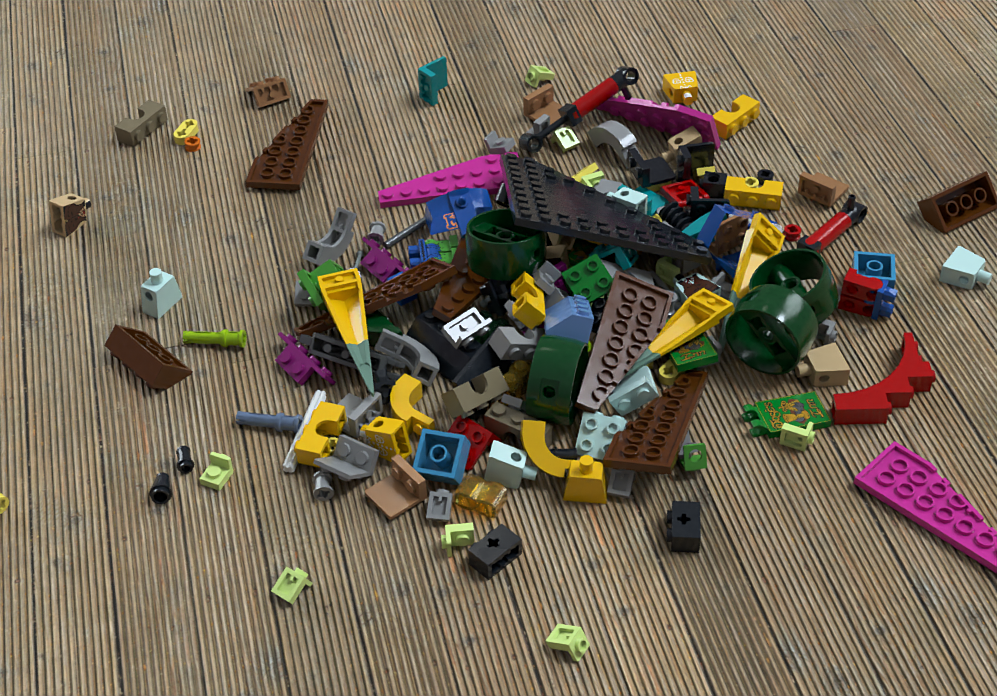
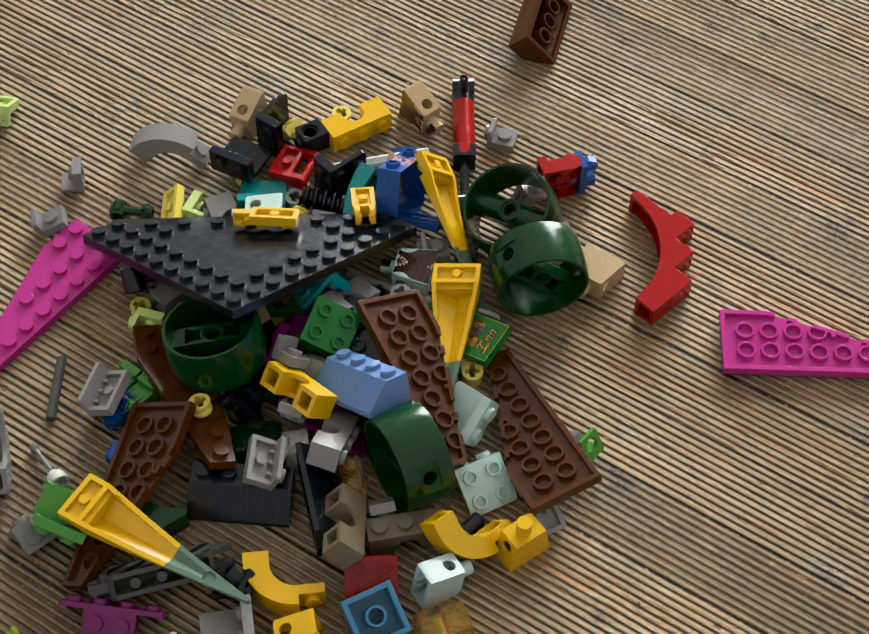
camera: 45 degrees left, 10 degrees up
(377, 230) = (29, 412): light grey bush -> none
(380, 263) = (73, 445): magenta bracket -> none
(417, 357) = (227, 524): light grey arch -> none
(419, 238) = (103, 390): none -> light grey bracket
(456, 209) = (110, 324): blue piece -> none
(464, 277) = (205, 409): none -> light yellow bush
(541, 103) = (52, 149): medium nougat bracket -> none
(550, 161) = (120, 209): none -> dark green bar
(565, 138) = (111, 171): yellowish green bracket -> none
(573, 113) = (101, 137): black piece -> none
(618, 199) = (266, 216): none -> yellow hinge
(663, 117) = (224, 84): dark pink wing -> none
(666, 270) = (368, 266): yellowish green bracket -> none
(681, 87) = (168, 40): yellow torso -> none
(685, 526) = (642, 520): black brick -> none
(688, 227) = (363, 204): none -> yellow hinge
(742, 113) = (255, 45): yellow arch -> none
(763, 175) = (345, 93): black bush -> none
(792, 232) = (432, 141): red bush -> none
(797, 410) = (610, 343): green tile -> none
(797, 437) = (642, 361): yellowish green bracket -> none
(806, 213) = (421, 108): none -> tan torso
(821, 188) = (408, 73): medium nougat bracket -> none
(845, 250) = (500, 138): none -> light grey bracket
(875, 265) = (546, 140): dark azure brick -> none
(964, 269) = (610, 93): light aqua torso -> none

